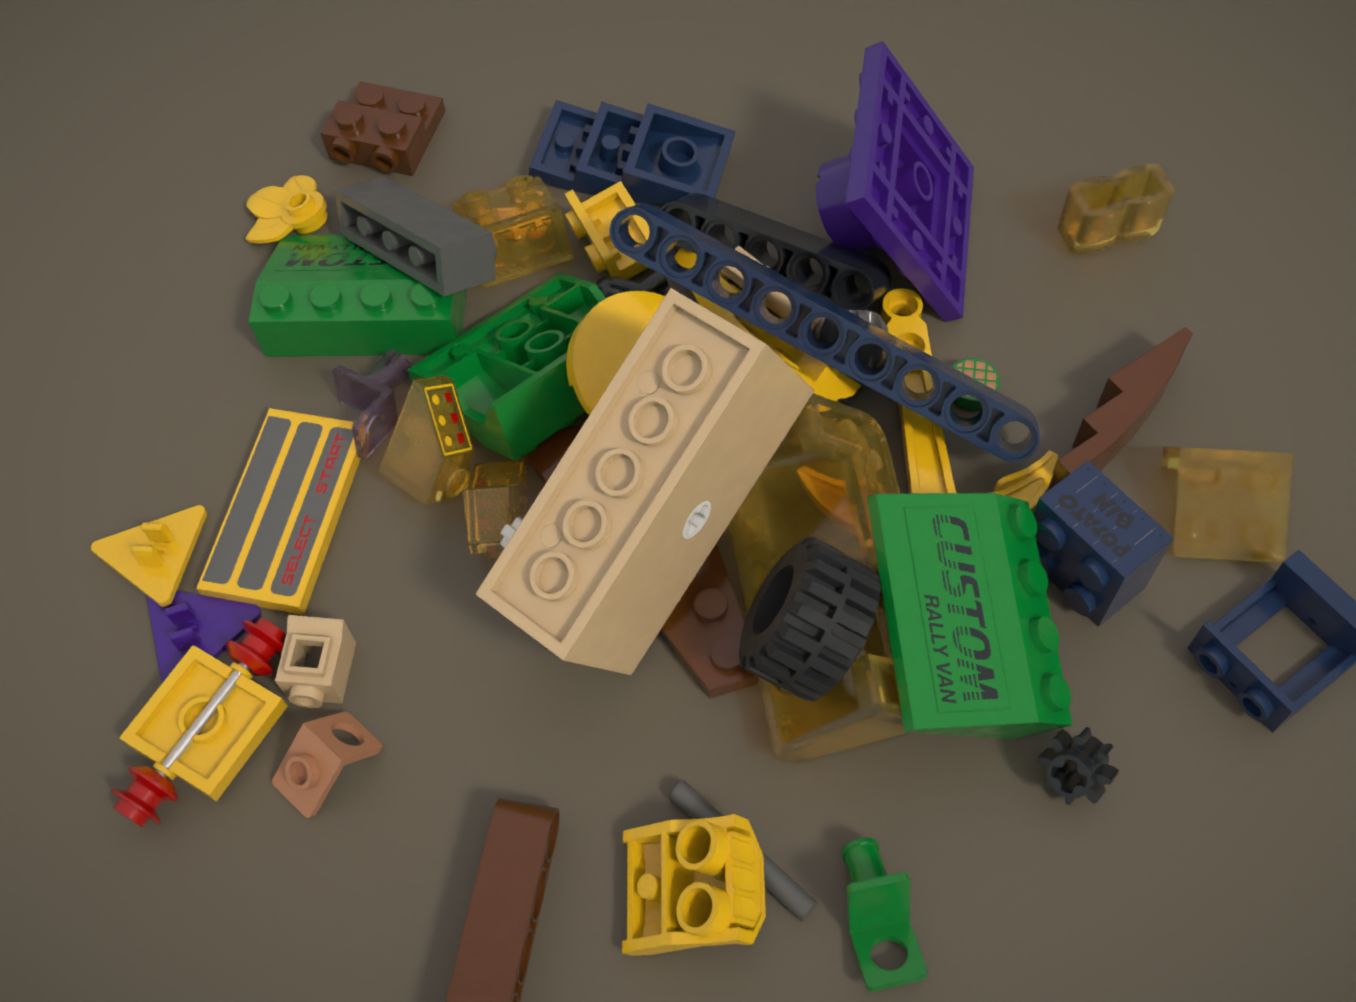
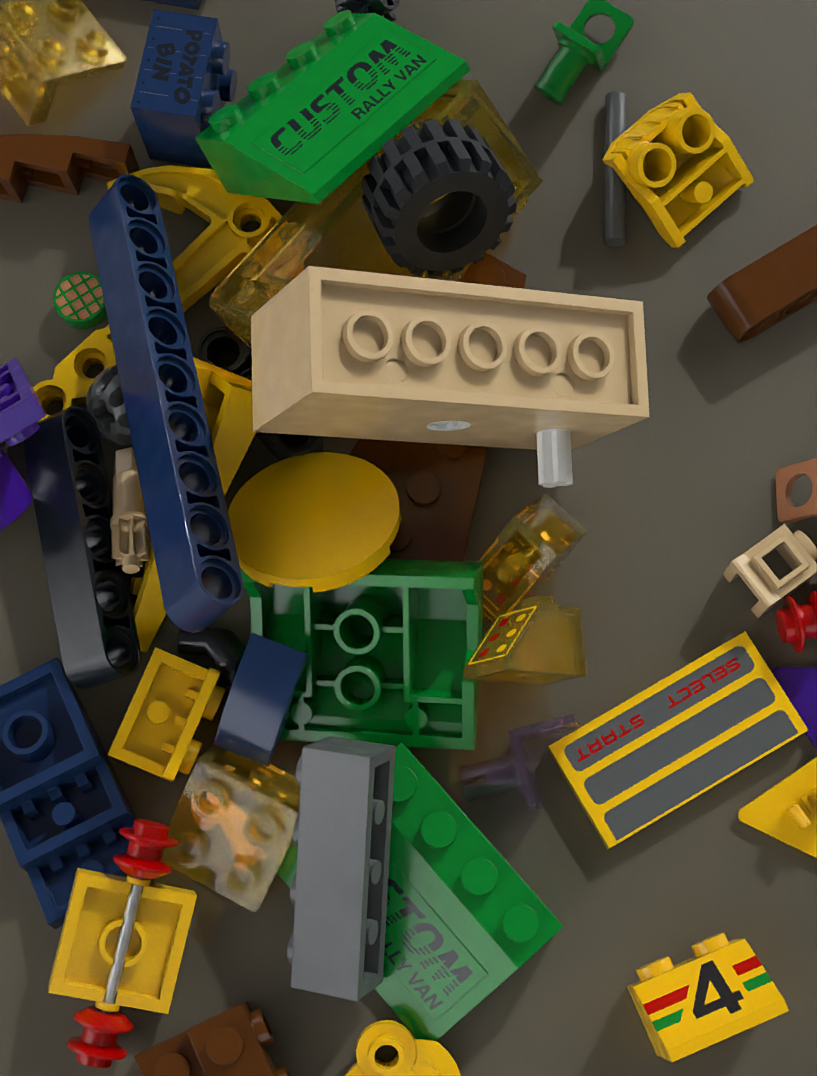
camera: 130 degrees left, 15 degrees up
(122, 371) = (704, 997): none -> yellow slope
(504, 121) = (122, 943): none -> yellow plate
(565, 272) = (260, 699): none -> dark blue slope

